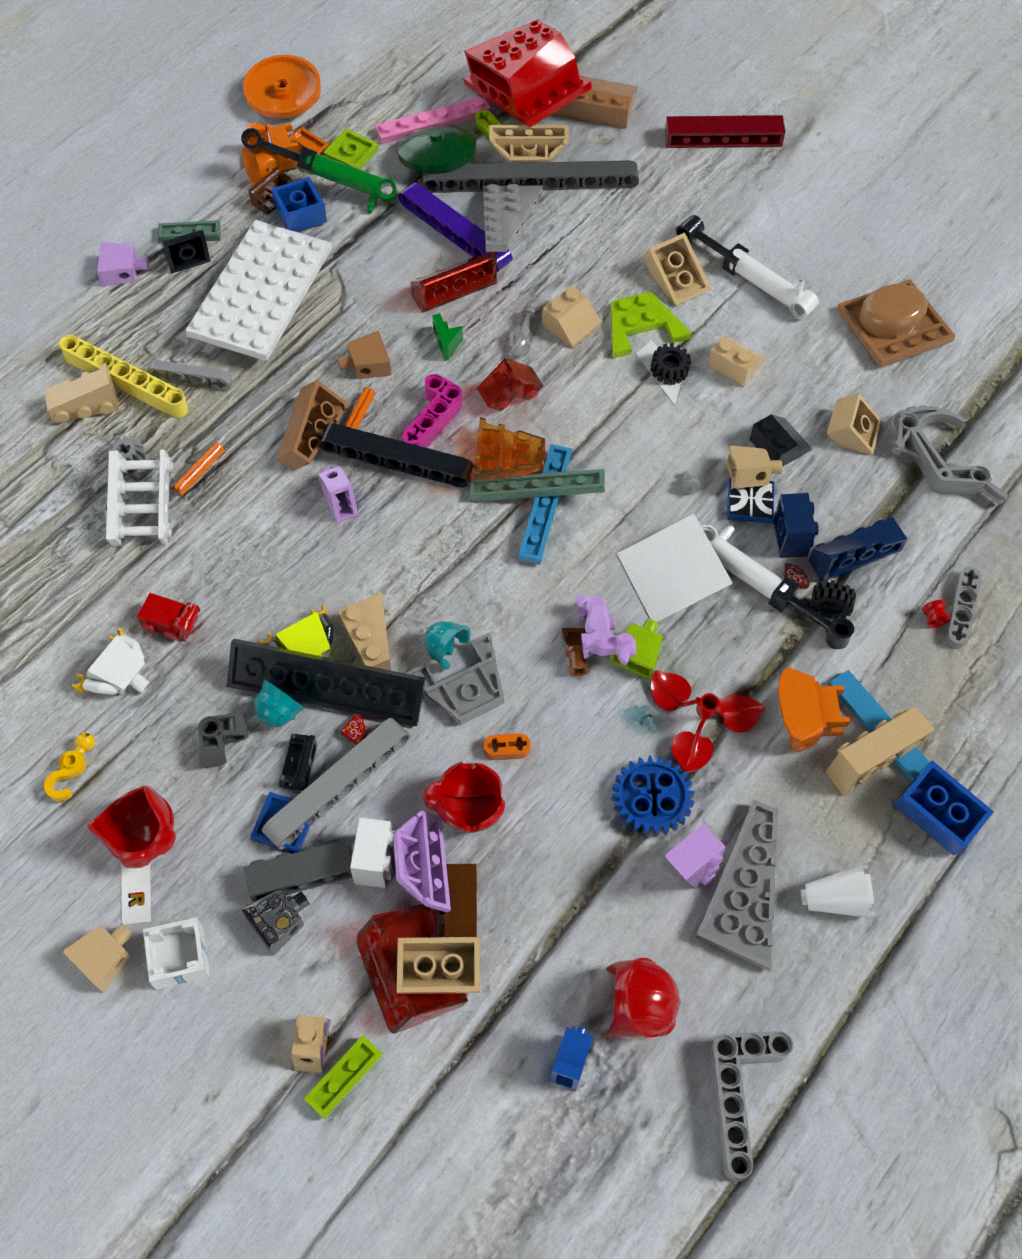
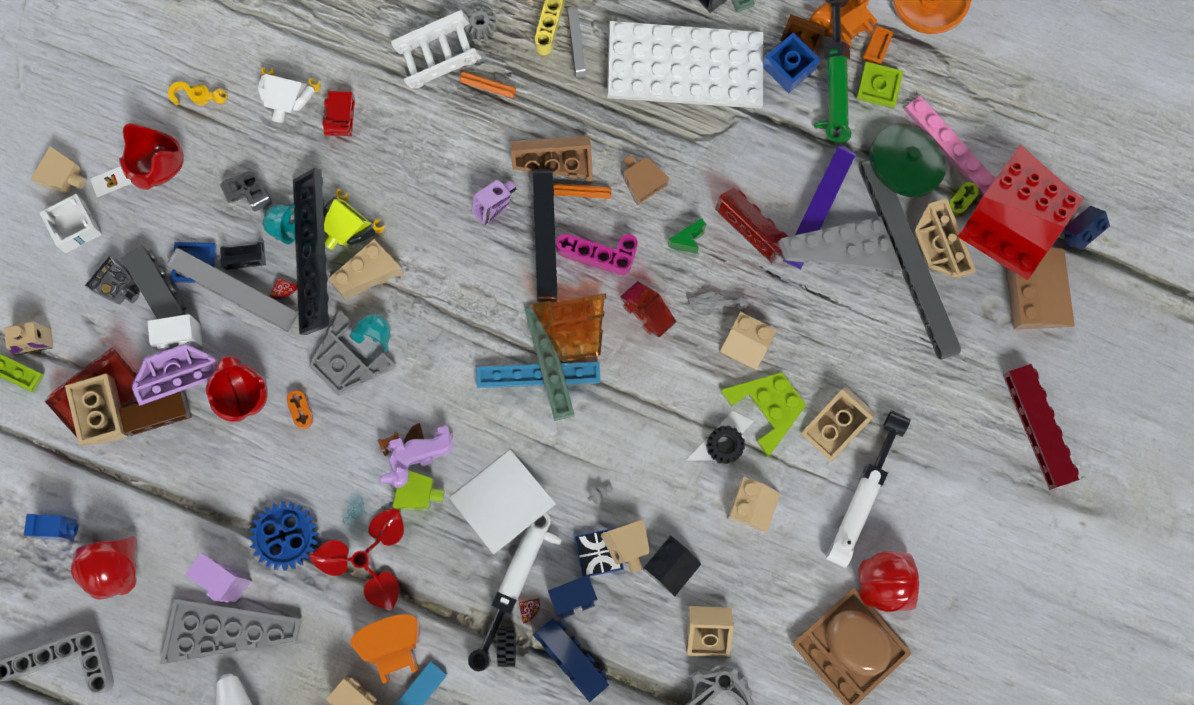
camera: 70 degrees right, 15 degrees up
(843, 267) = (889, 581): none -> red piece

